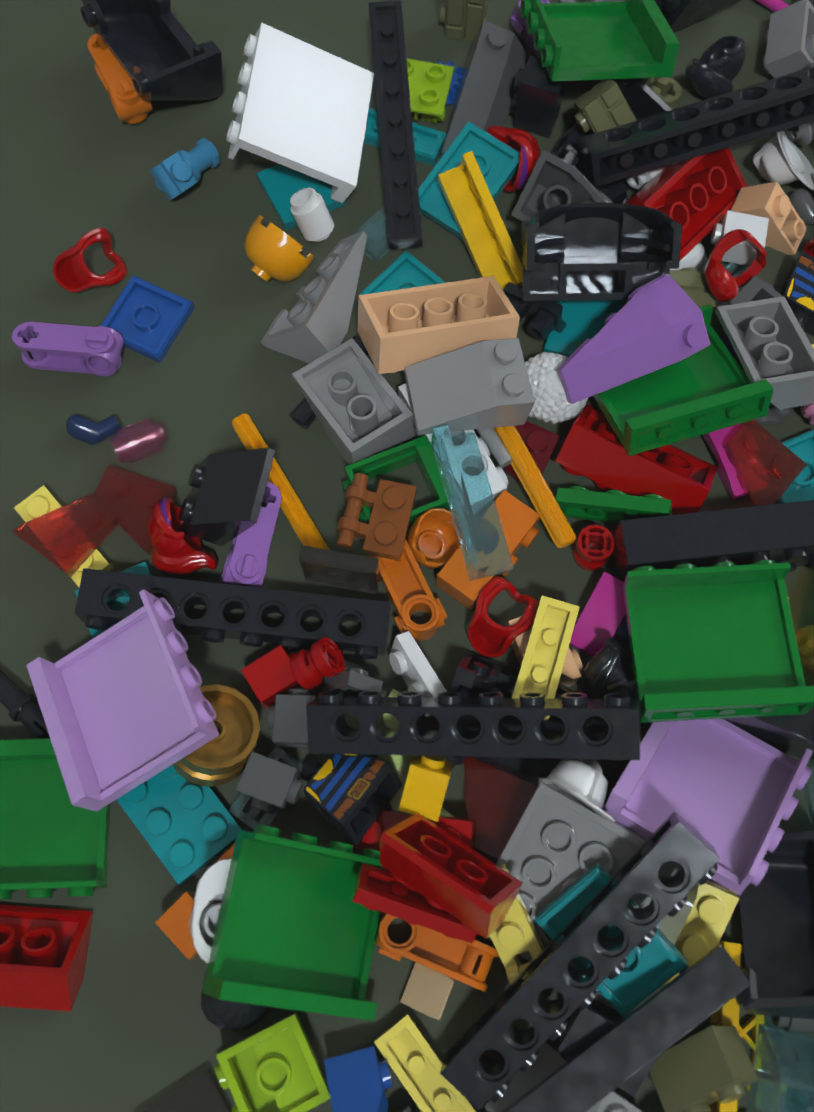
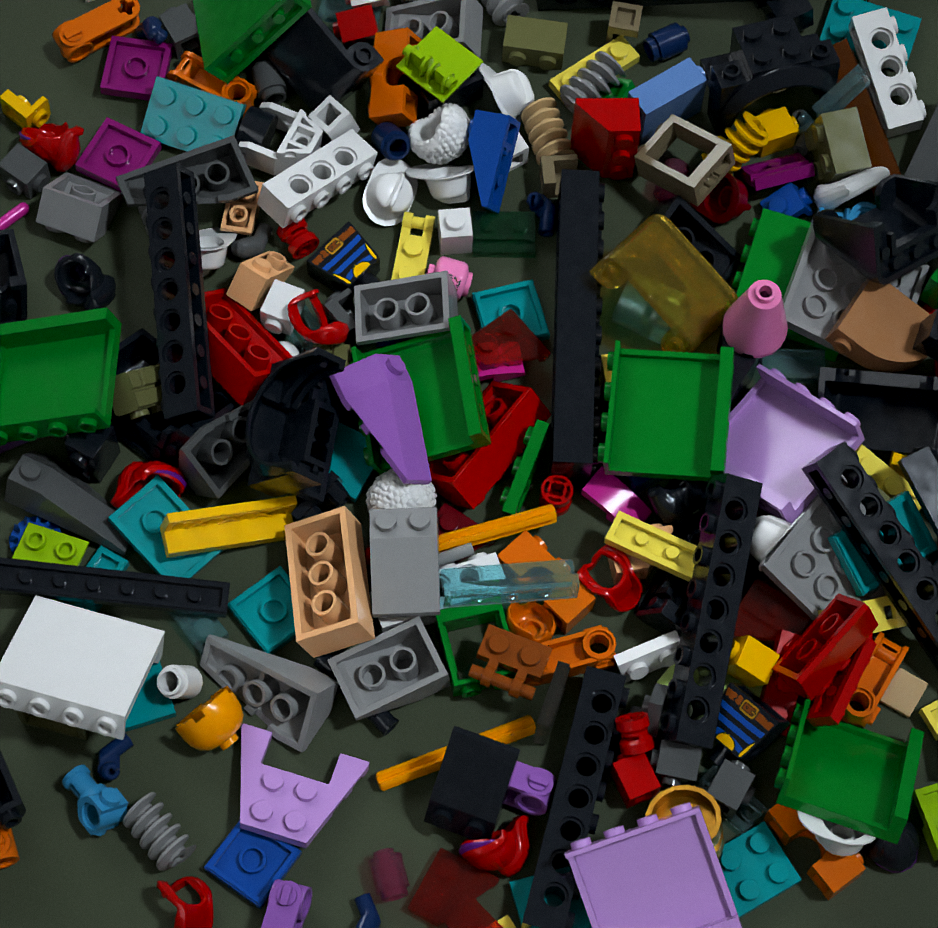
camera: 85 degrees left, 5 degrees down
(158, 224) = (156, 834): none -> light grey piece
(203, 333) = (285, 803): none -> lavender wing
(234, 179) = (109, 758): none -> dark blue arm

